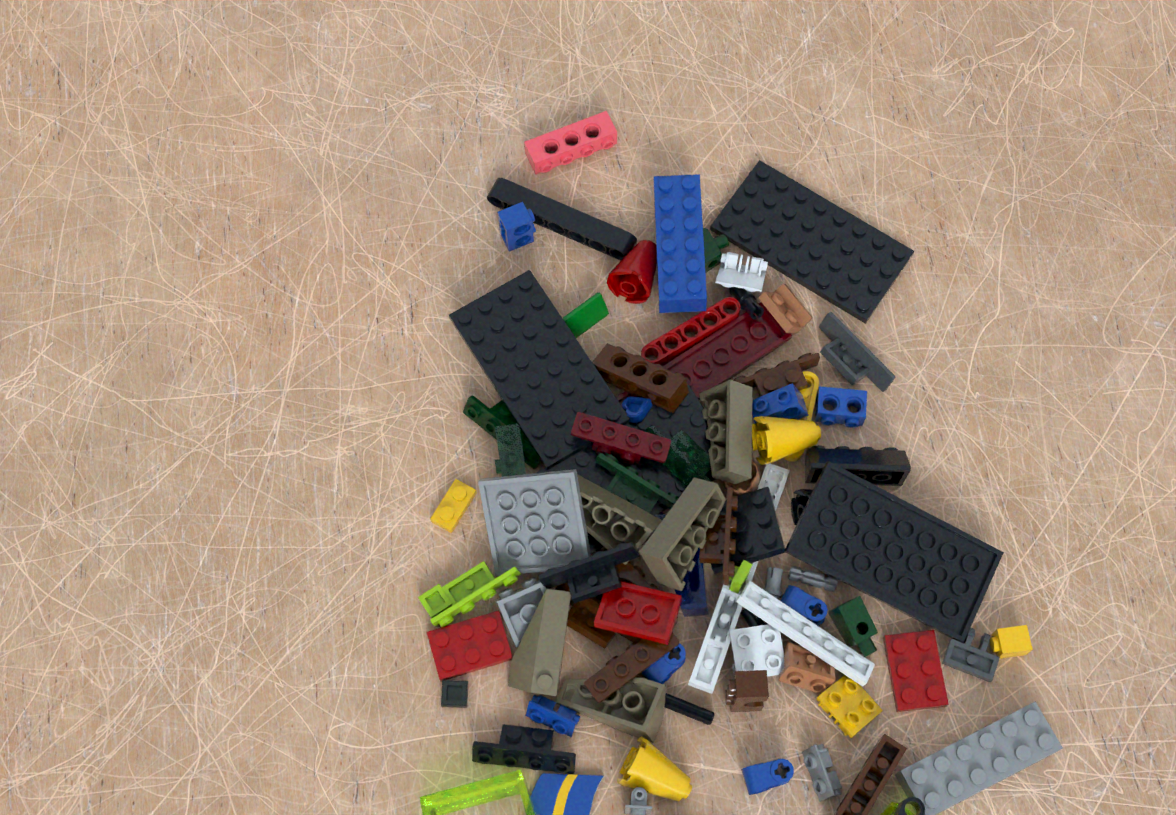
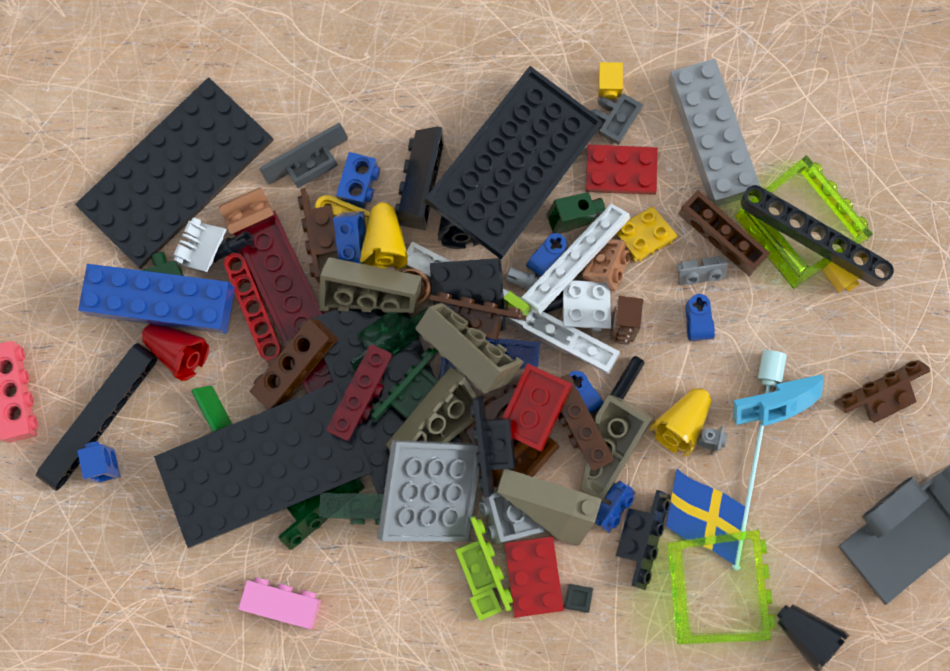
camera: 75 degrees left, 10 degrees up
(410, 410) = (280, 603): none -> bright pink brick
(453, 505) = (389, 573): yellow plate -> none
(636, 408) = (325, 374): blue tile -> none
(813, 578) = (521, 243): light grey axle -> none

